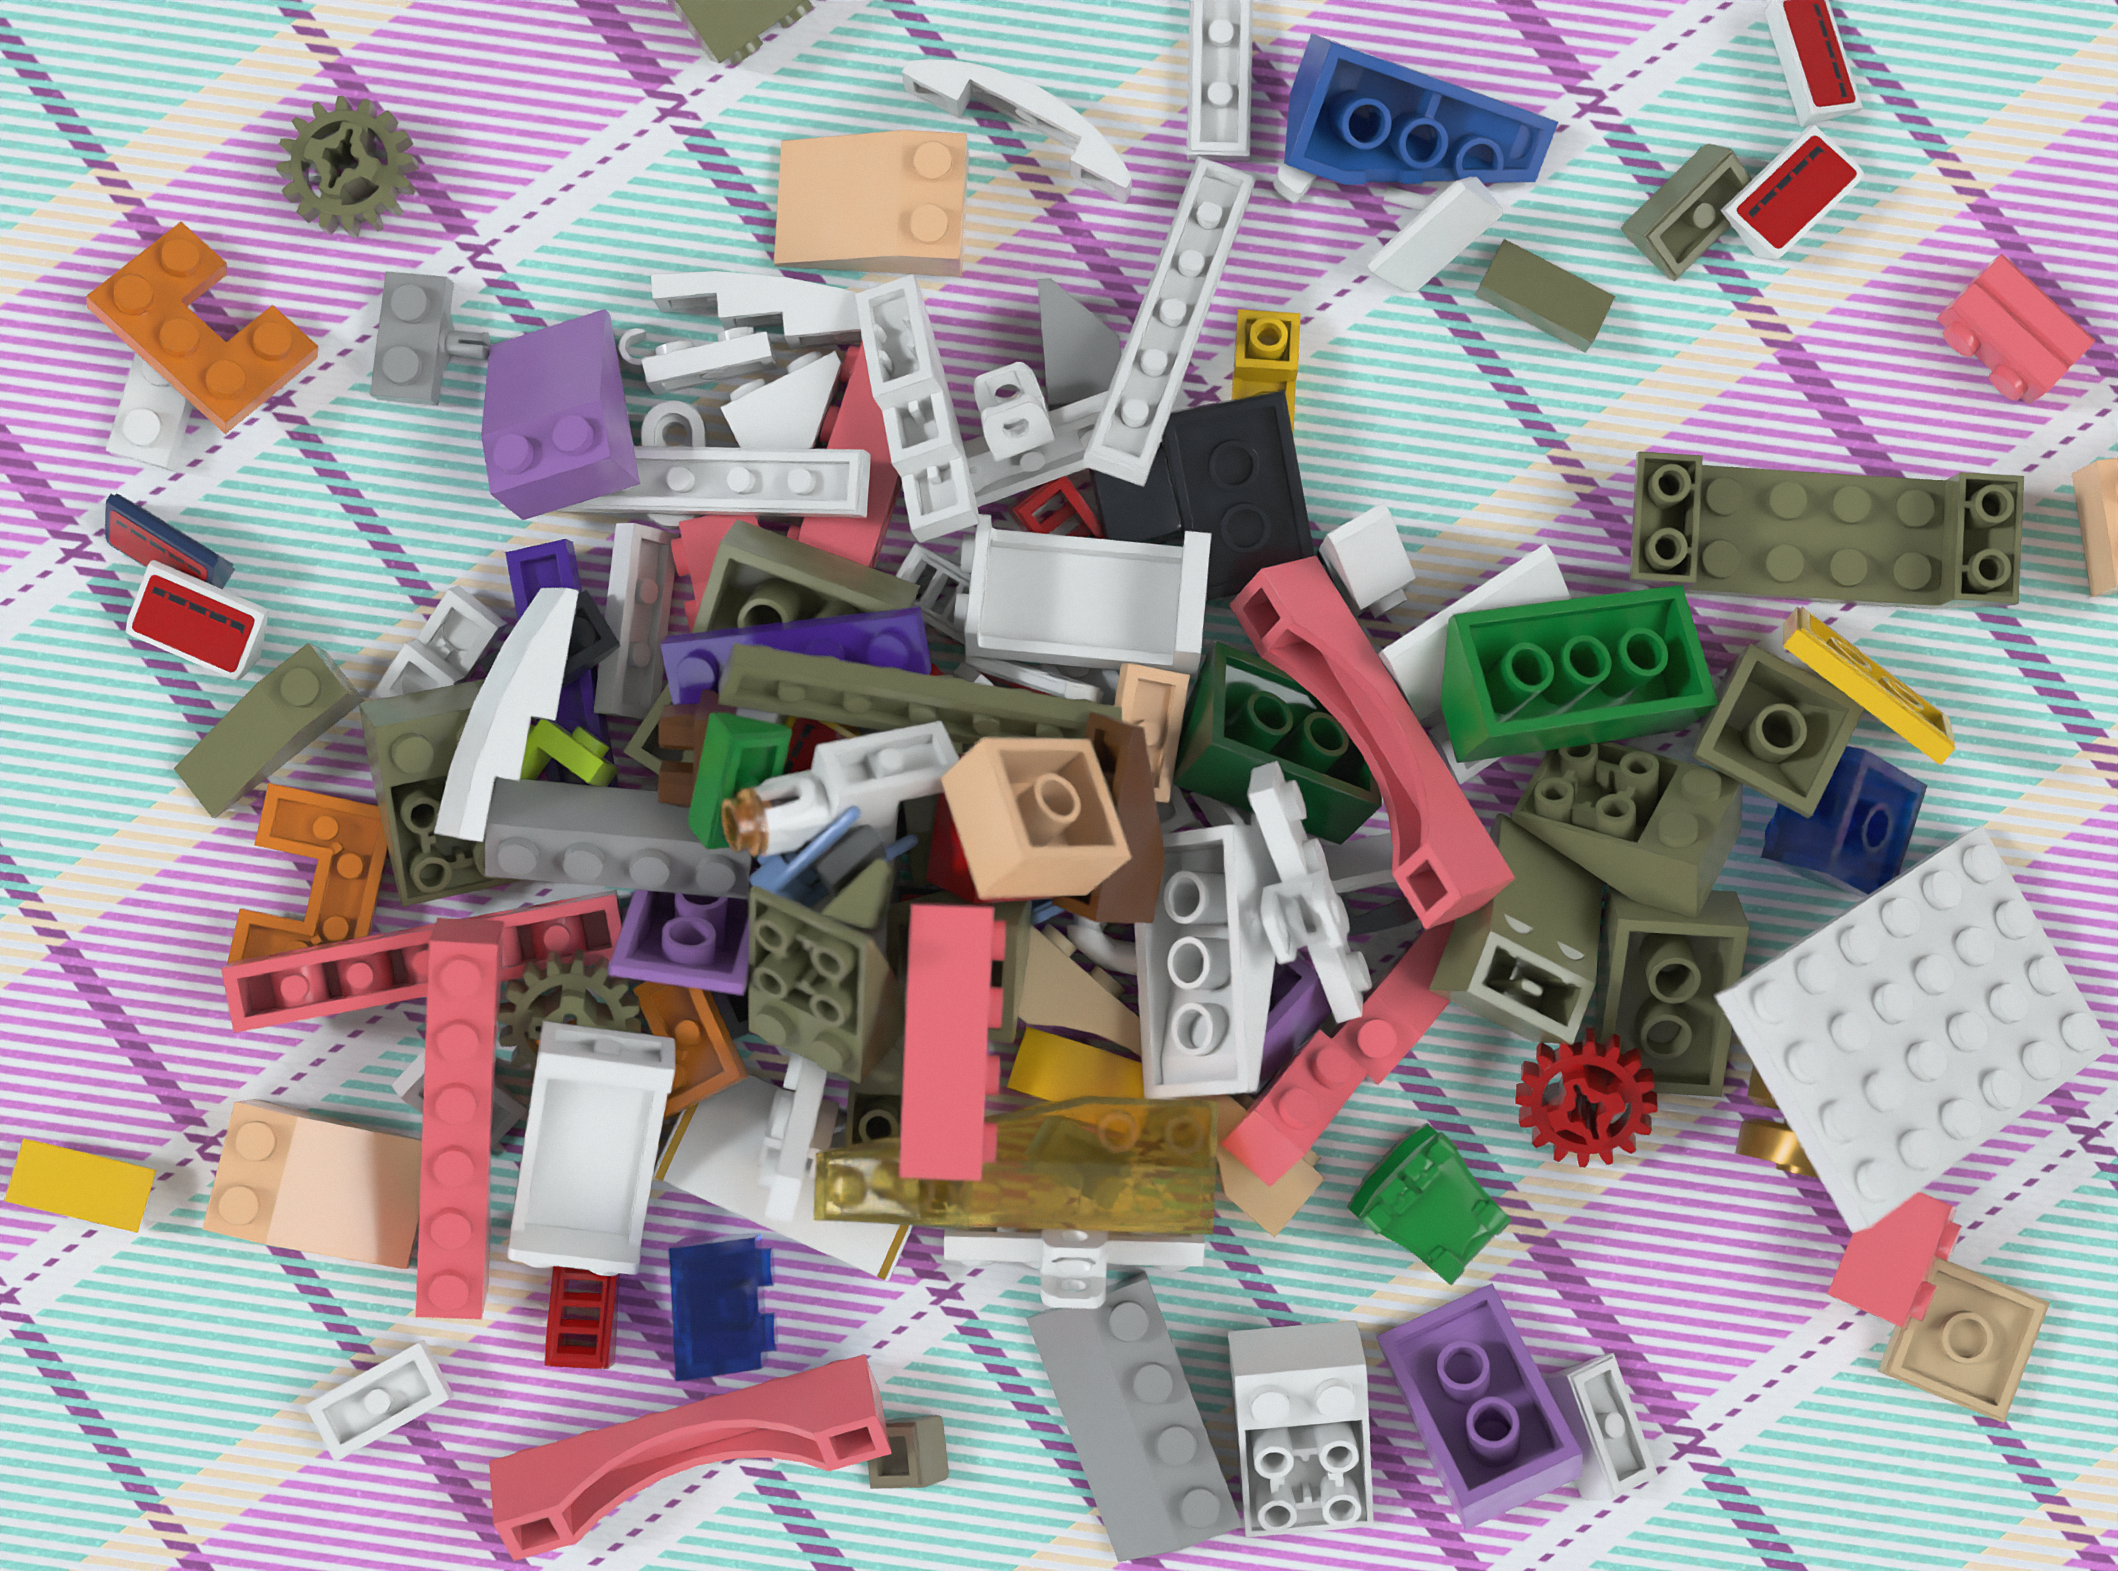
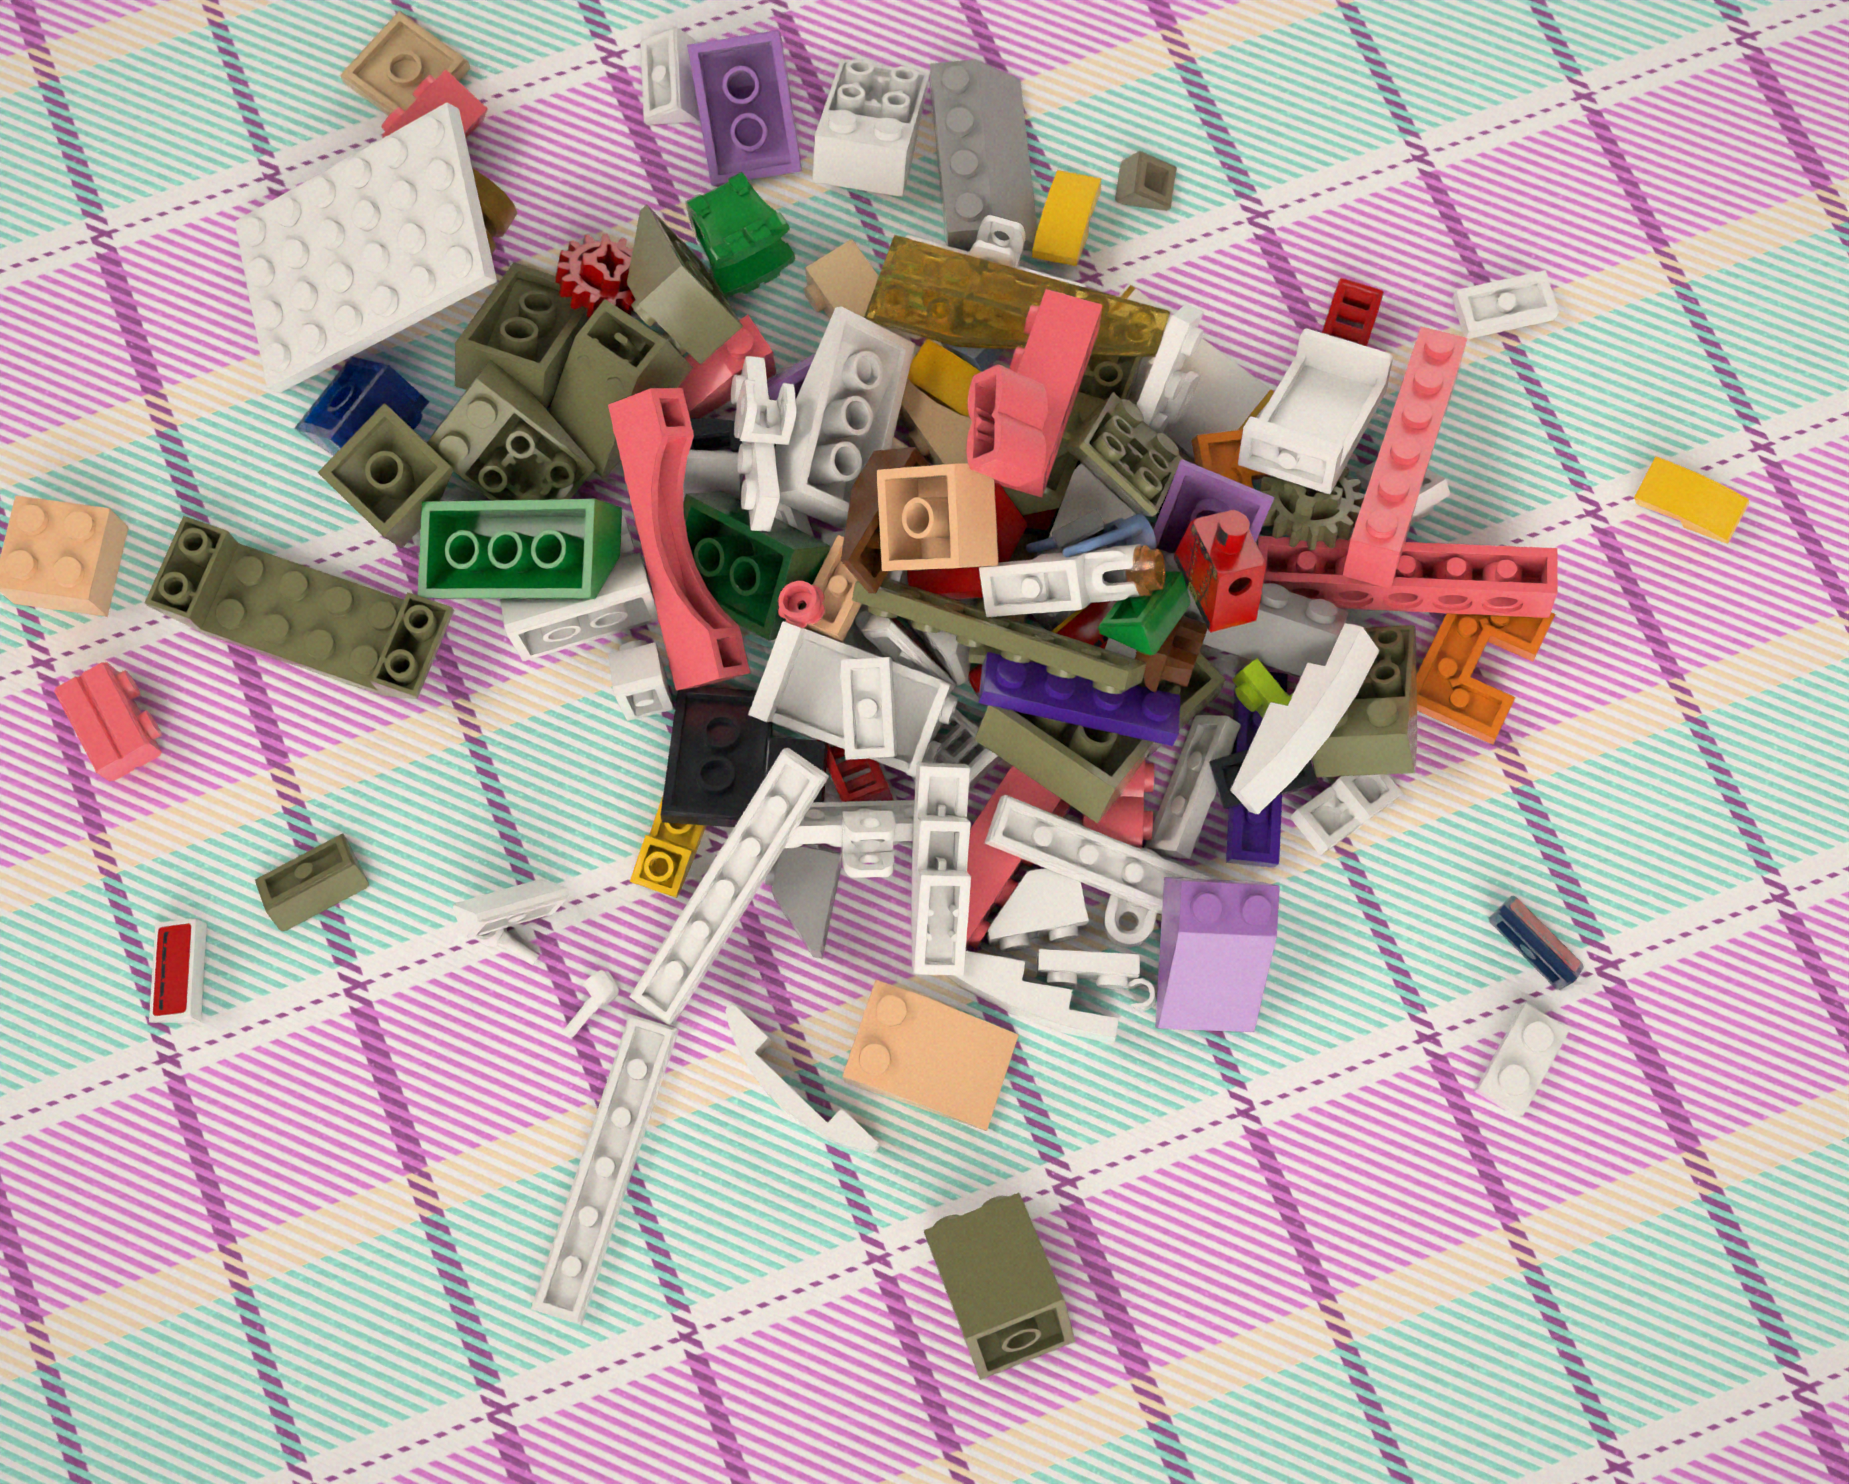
camera: 165 degrees left, 10 degrees down
(150, 313) = (1516, 1122): orange plate -> none
(197, 621) = (1525, 876): slope -> none
(268, 728) = (1485, 785): olive slope -> none
(317, 1185) = (1517, 456): light nougat slope -> none
(325, 155) = (1353, 1211): olive gear -> none
(418, 339) = (1308, 1051): light grey plate -> none
(563, 1488) = (1393, 209): coral arch -> none
(652, 857) = (1222, 569): none -> red torso
(721, 1305) = (1249, 297): clear blue slope -> none
(865, 898) = (1079, 494): olive slope -> none
(973, 941) = (1006, 426): none -> coral brick
(998, 1362) = (1066, 218): none -> yellow slope
(1062, 585) = (868, 708): none -> white plate
(1200, 693) = (797, 593): none -> coral plate
(1294, 1108) = (803, 311): coral brick -> none
(1384, 122) = (516, 1009): blue wedge -> none
(1481, 1086) = (677, 290): none -> olive slope
(1545, 296) = (442, 847): olive slope -> none
(1792, 194) = (231, 867): red slope -> none
(1869, 684) = (310, 492): yellow tile -> none

